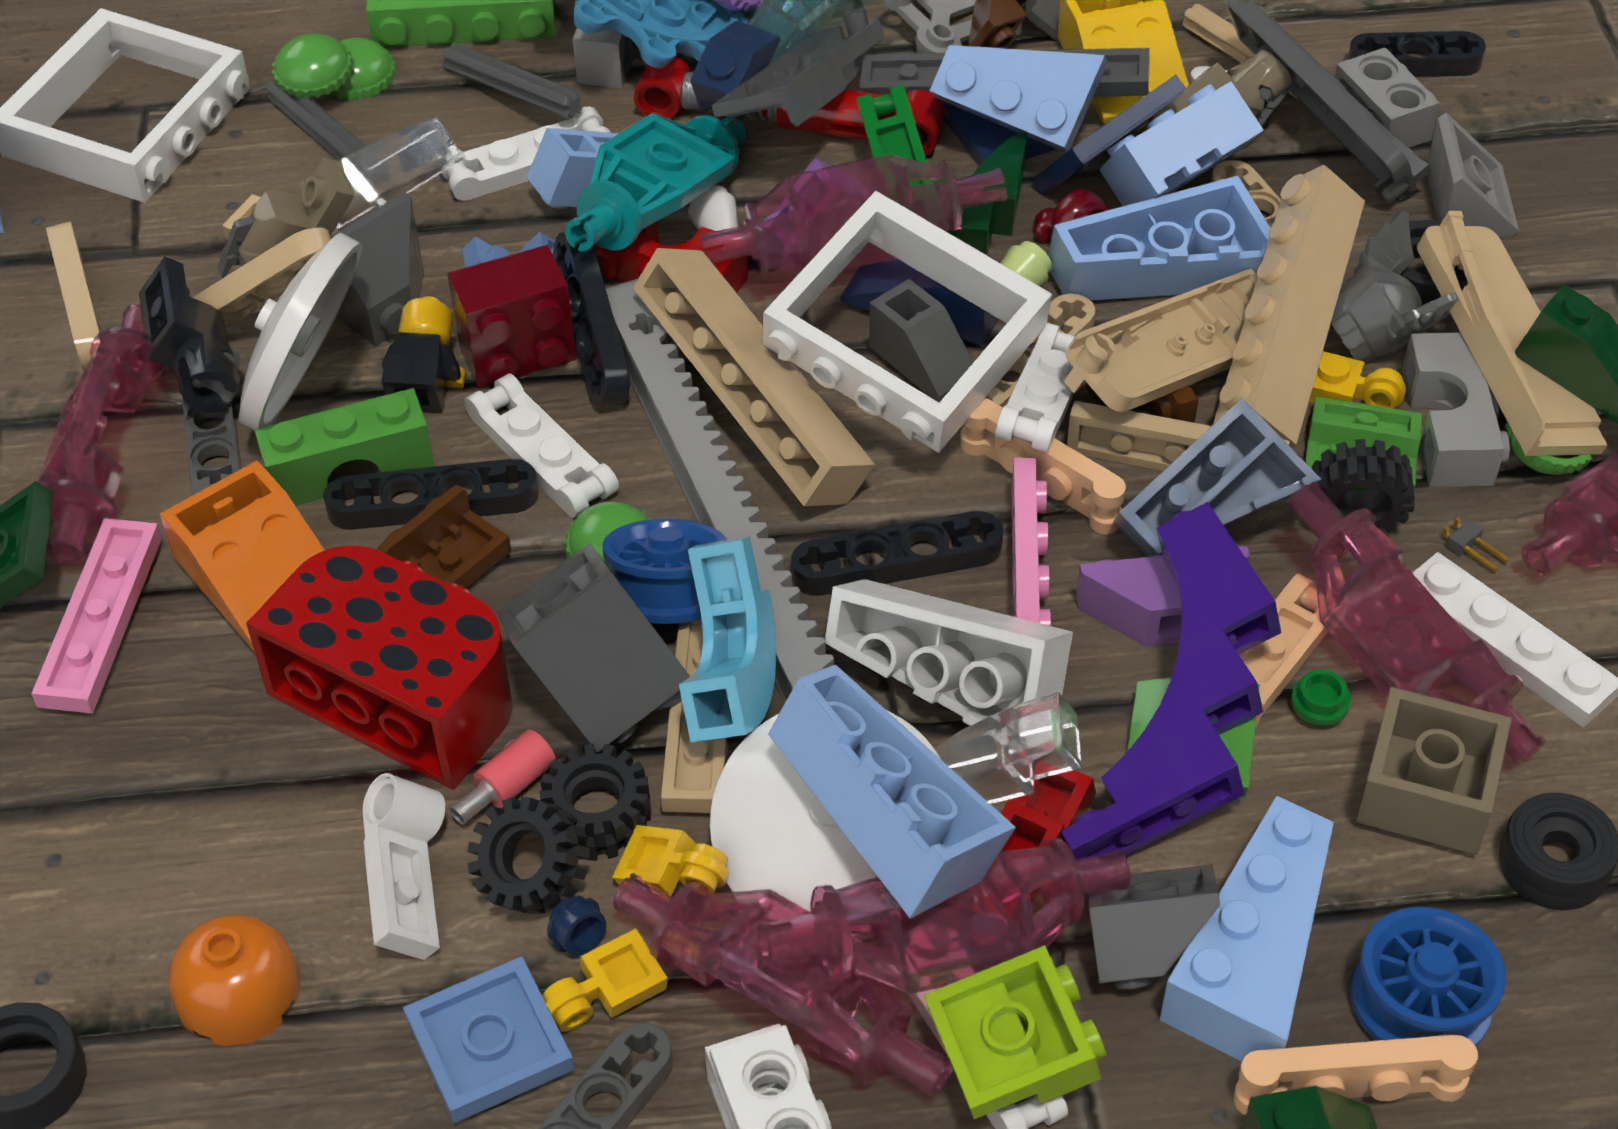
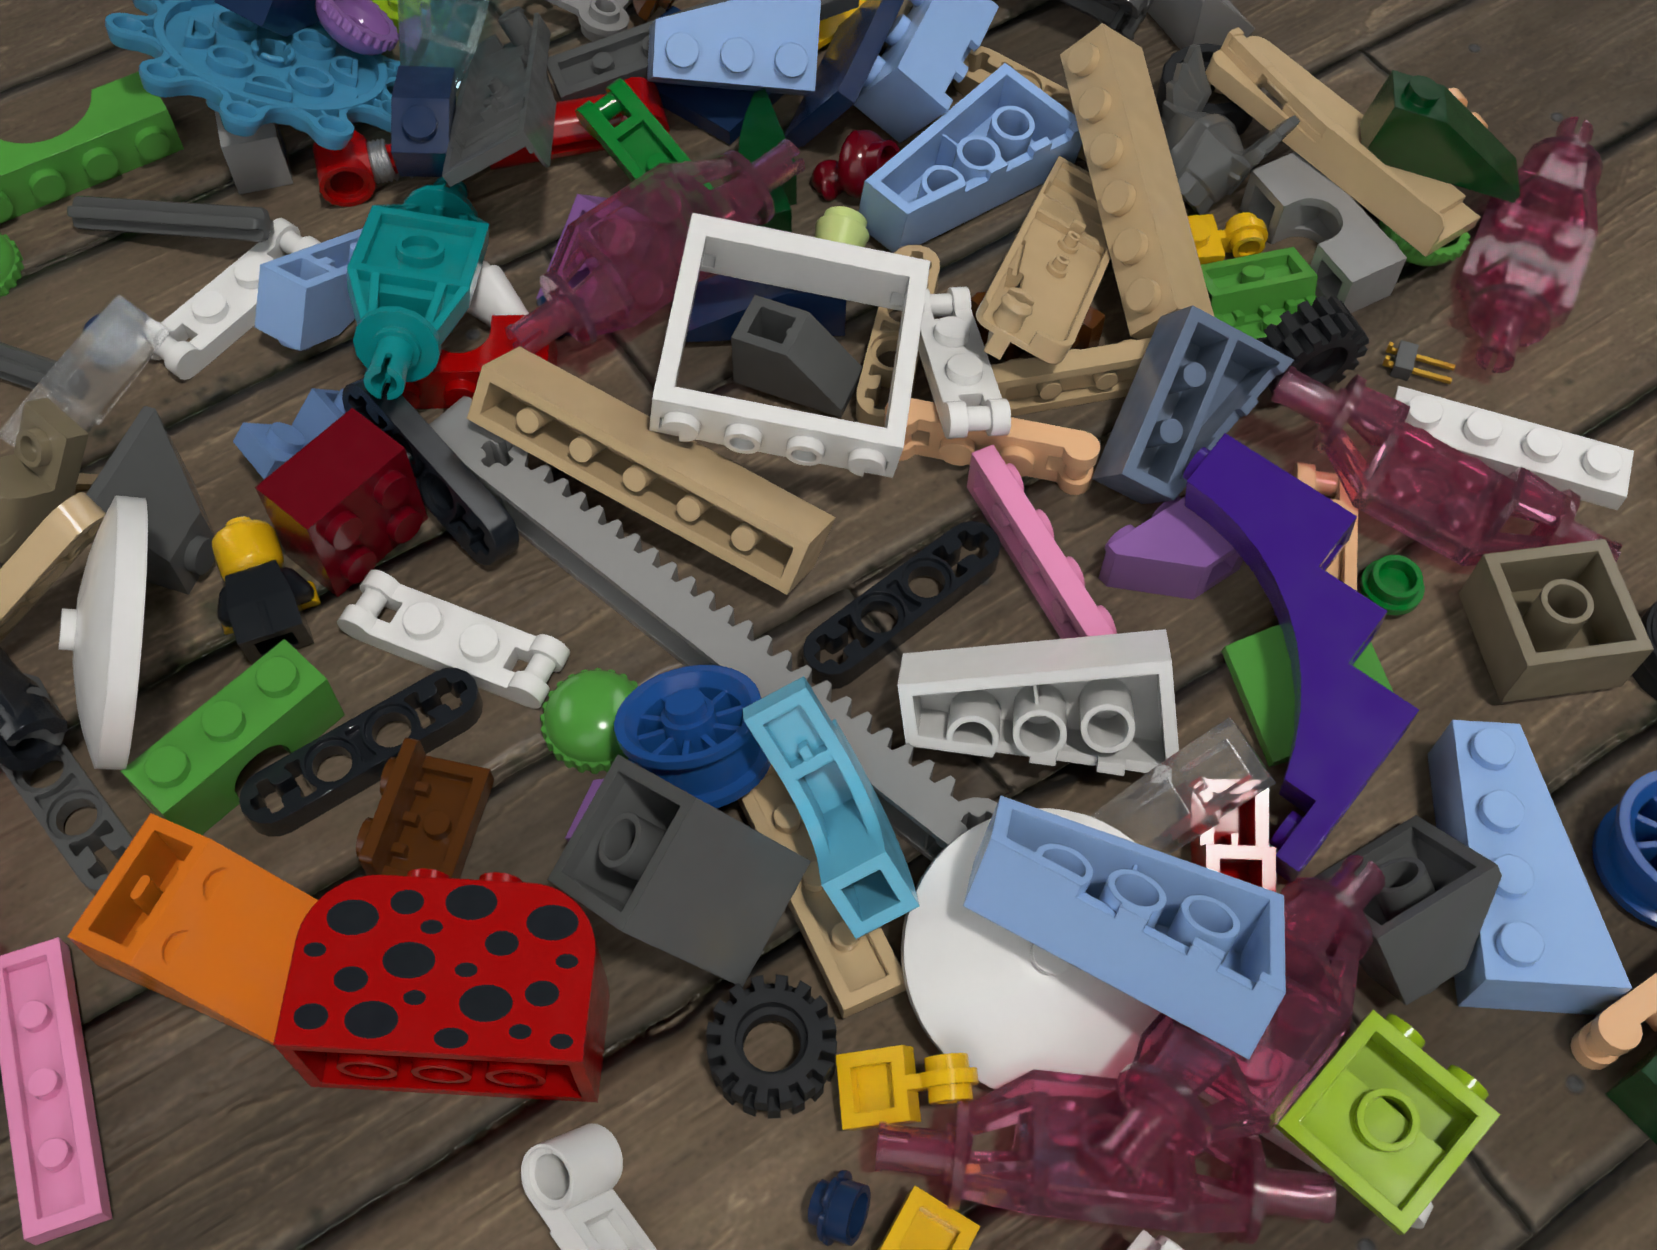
camera: 30 degrees left, 10 degrees up
(497, 851) = (724, 1195): black tyre -> none
(506, 774) = (653, 1061): coral piece -> none

